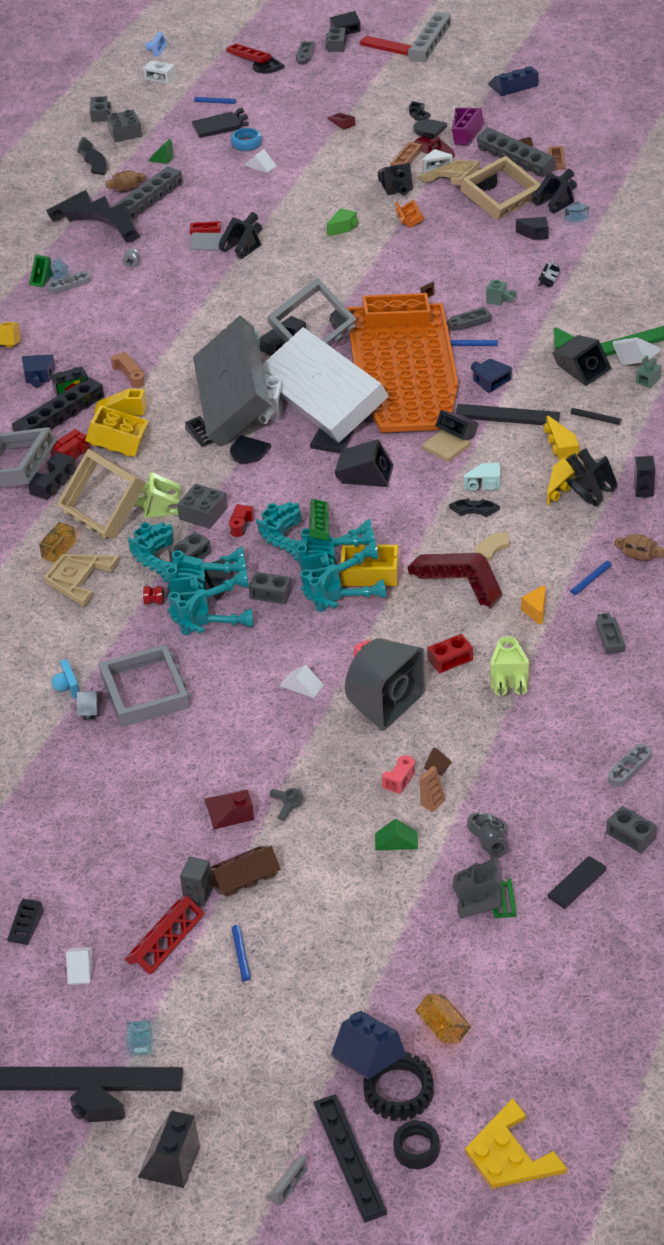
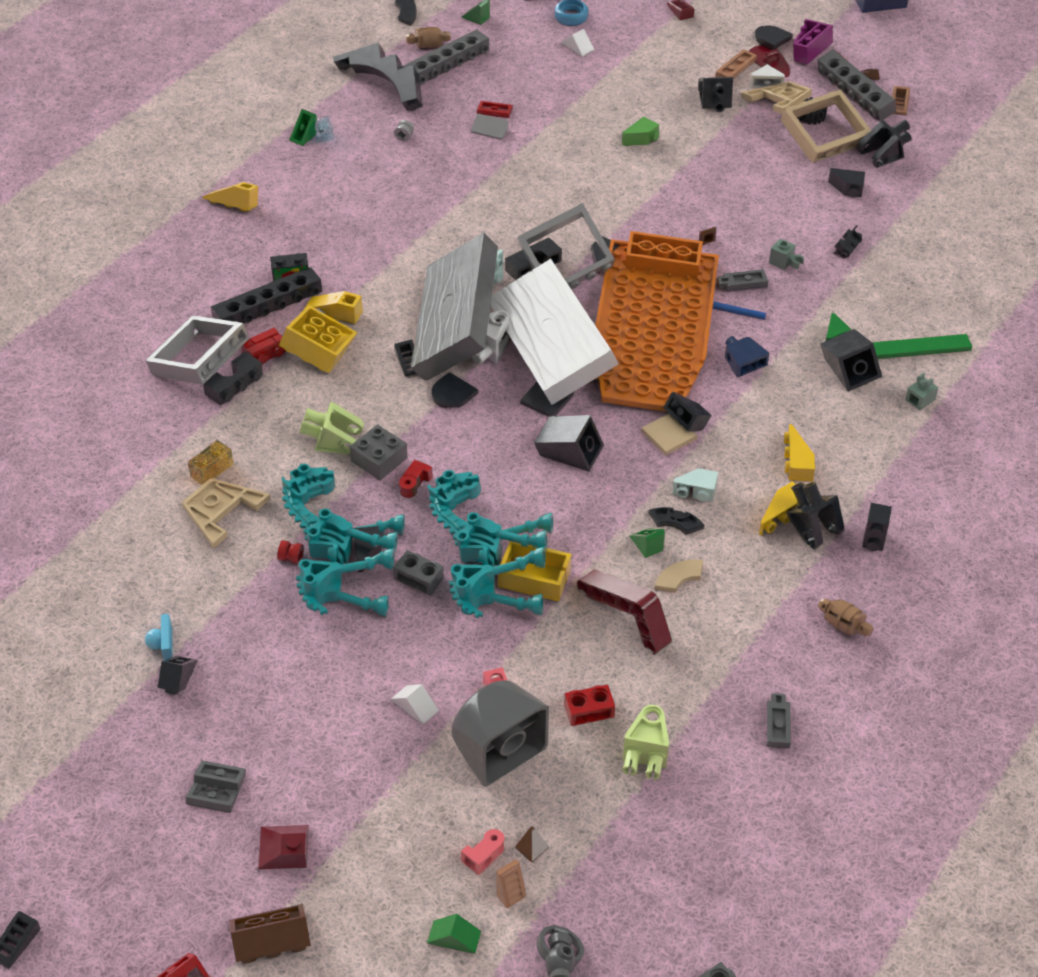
camera: 10 degrees right, 5 degrees up
(38, 368) = (262, 244): dark blue torso -> none
(61, 284) = (346, 144): light grey beam -> none
(78, 483) = (249, 400): tan window -> none
(129, 368) = (358, 263): nougat leg -> none
(151, 709) = (246, 697): light grey window -> none
(152, 772) = (216, 777): none -> dark grey slope
(192, 545) = (349, 503): dark grey brick -> none
(197, 880) = (211, 940): dark grey brick -> none
(243, 235) = (528, 128): black piece -> none
(291, 798) = (354, 853): dark grey piece -> none
(319, 519) = (494, 502): green tile -> none
(409, 213) = (717, 136): orange bracket -> none
(417, 111) = (765, 14): black tile -> none
(458, 526) = (649, 541): none -> green slope
(503, 414) = (747, 409): black tile -> none
(534, 604) = (704, 663): light orange slope -> none
(577, 212) = (901, 172): clear light blue brick -> none
(591, 577) = (779, 641): blue bar -> none
(596, 416) = (847, 433): black bar -> none
(629, 758) = (752, 894): light grey beam -> none
(634, 350) = (913, 362): white slope -> none

